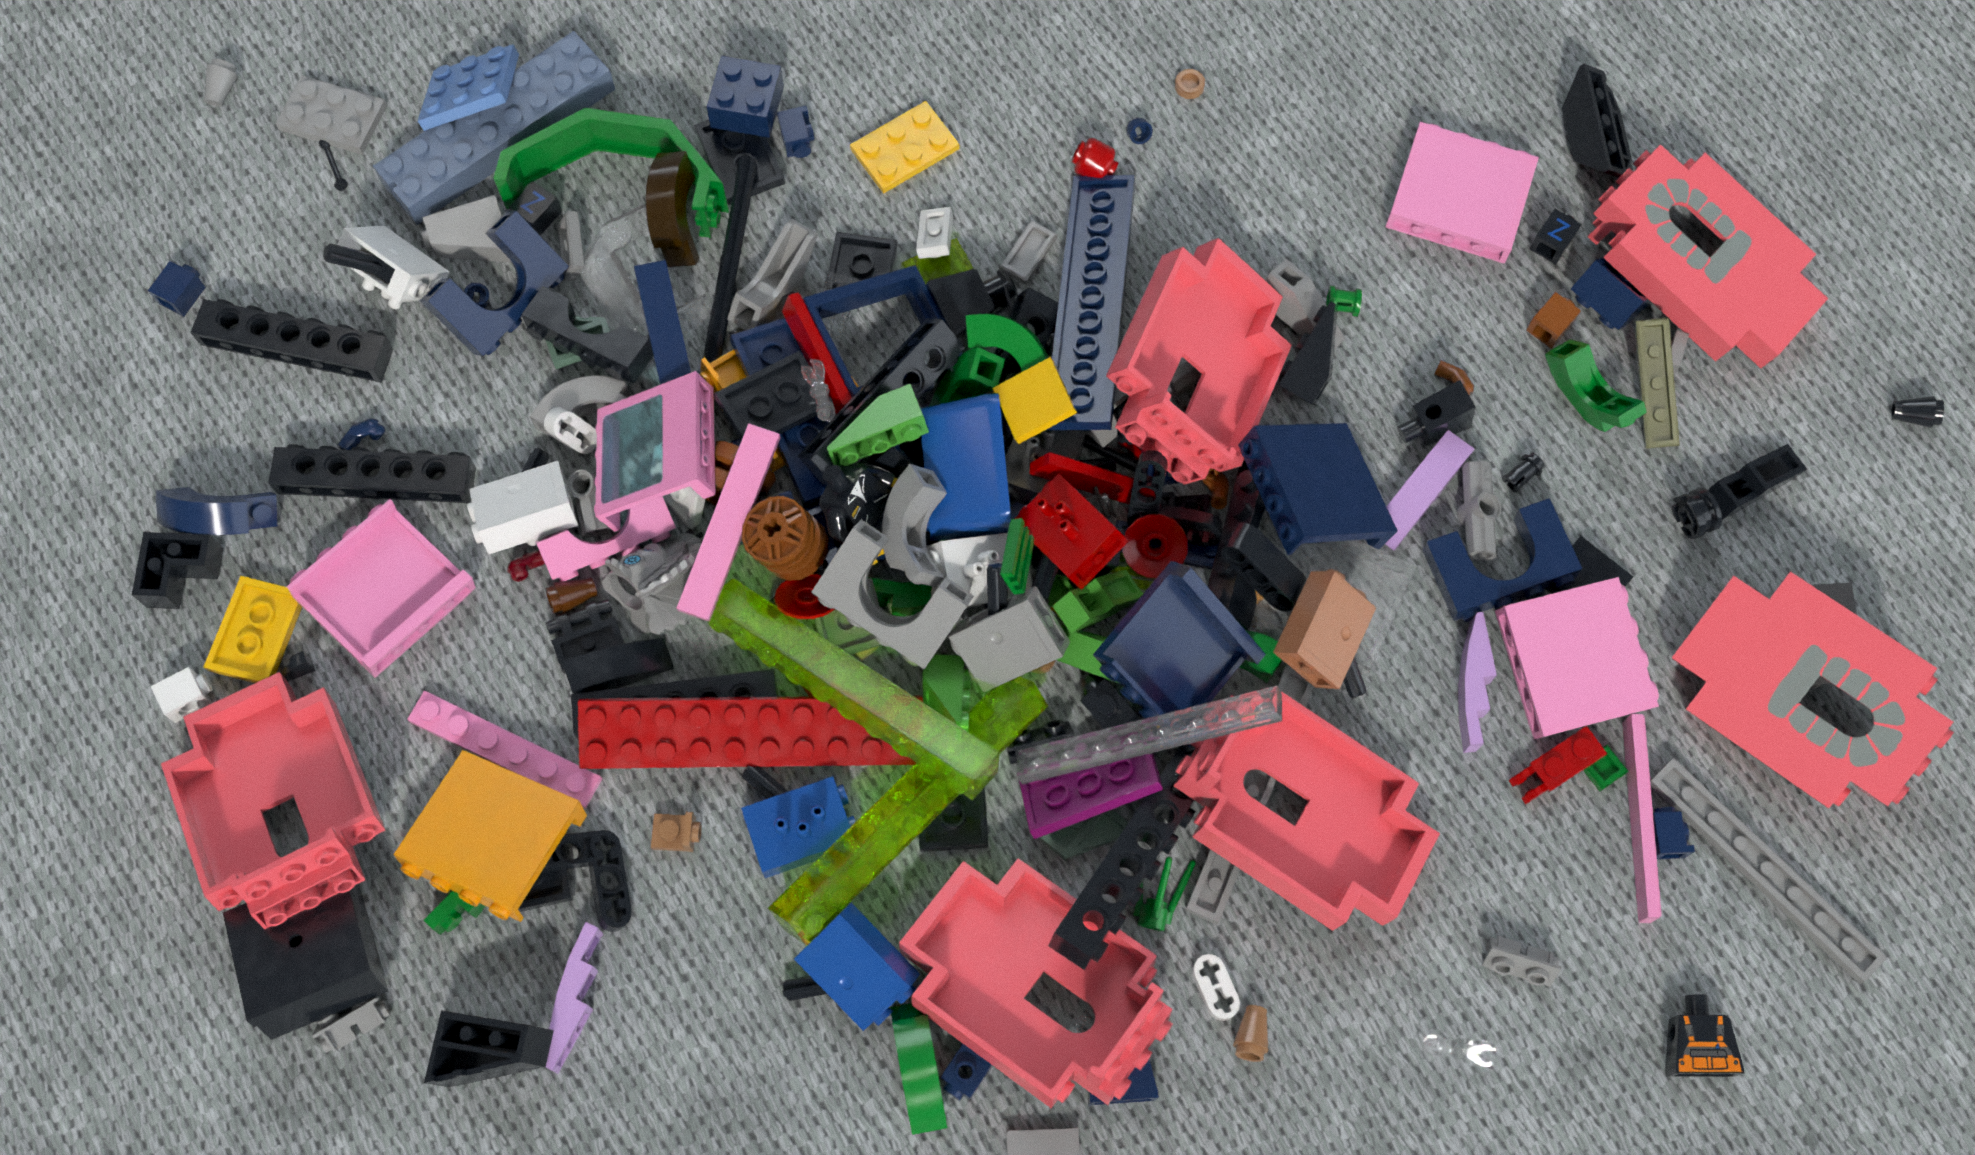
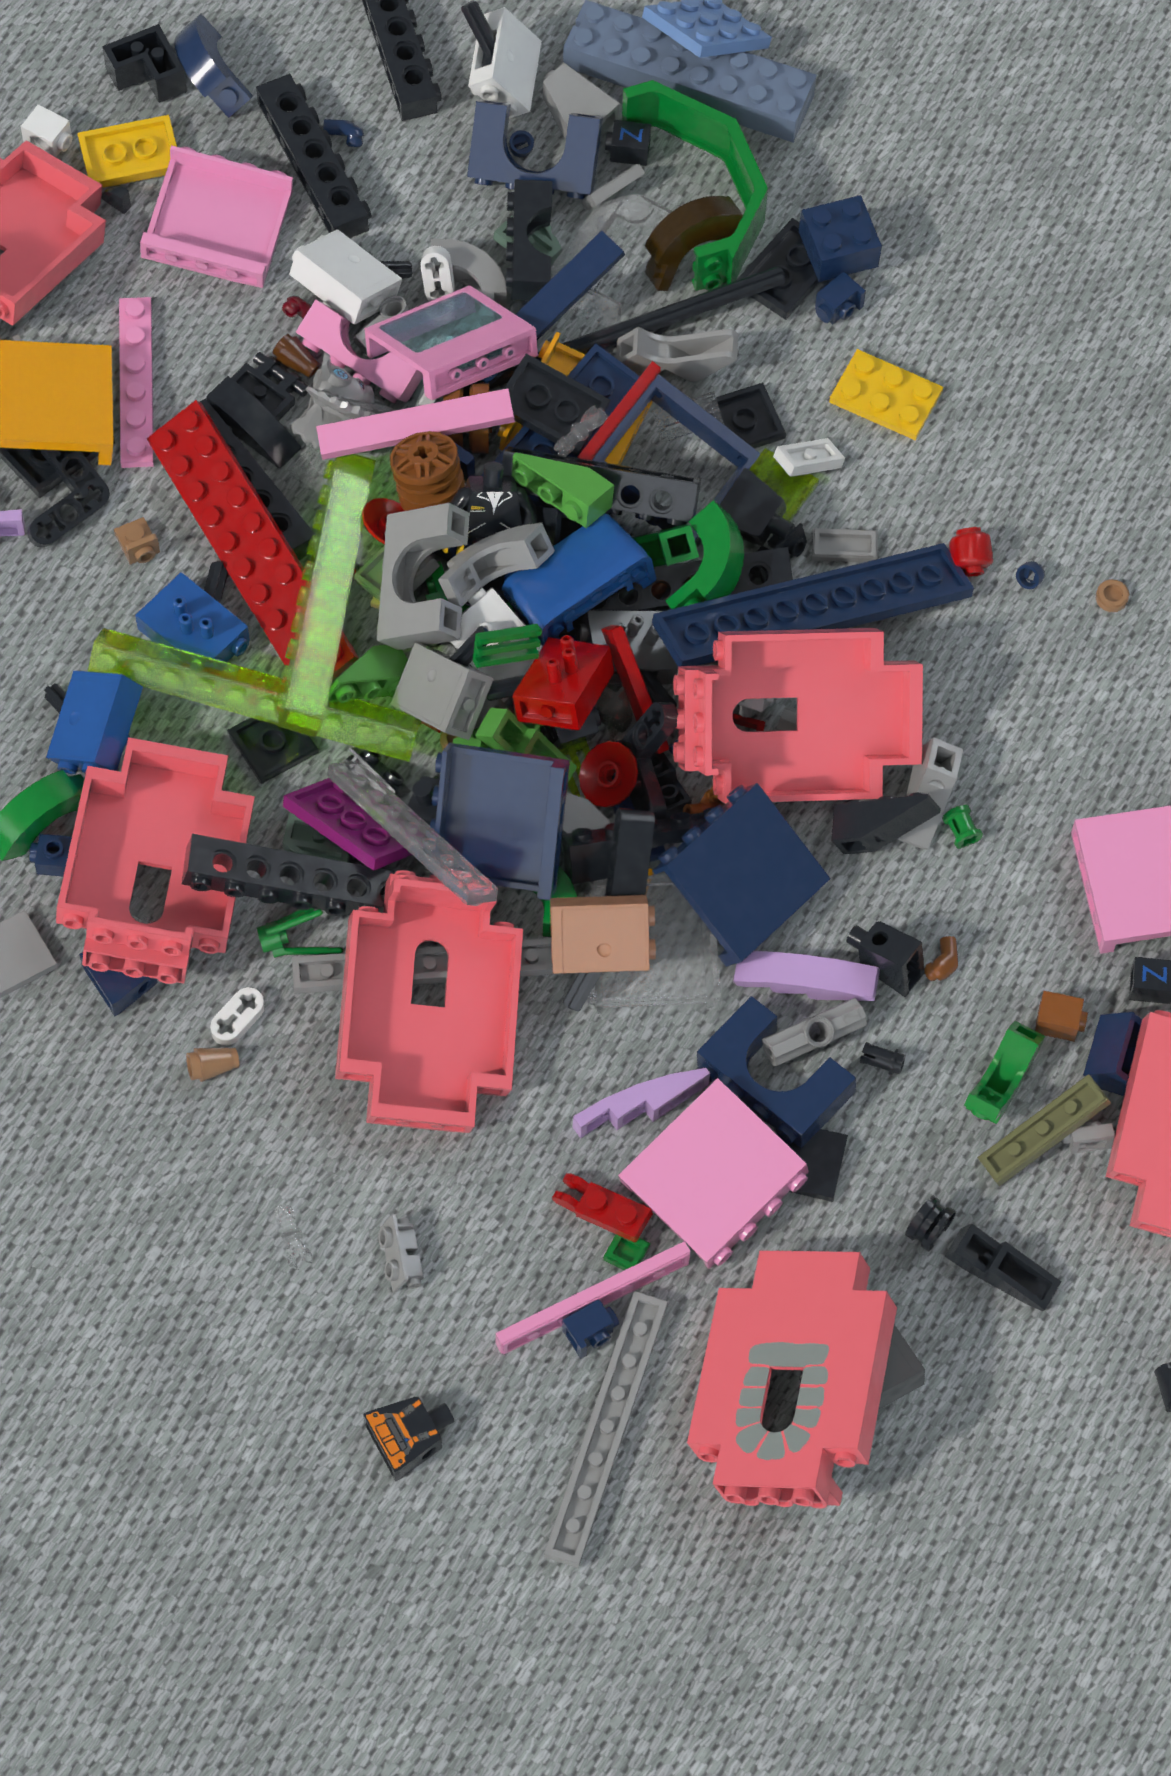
camera: 60 degrees right, 5 degrees down
(1034, 400) = (668, 595): yellow tile -> none

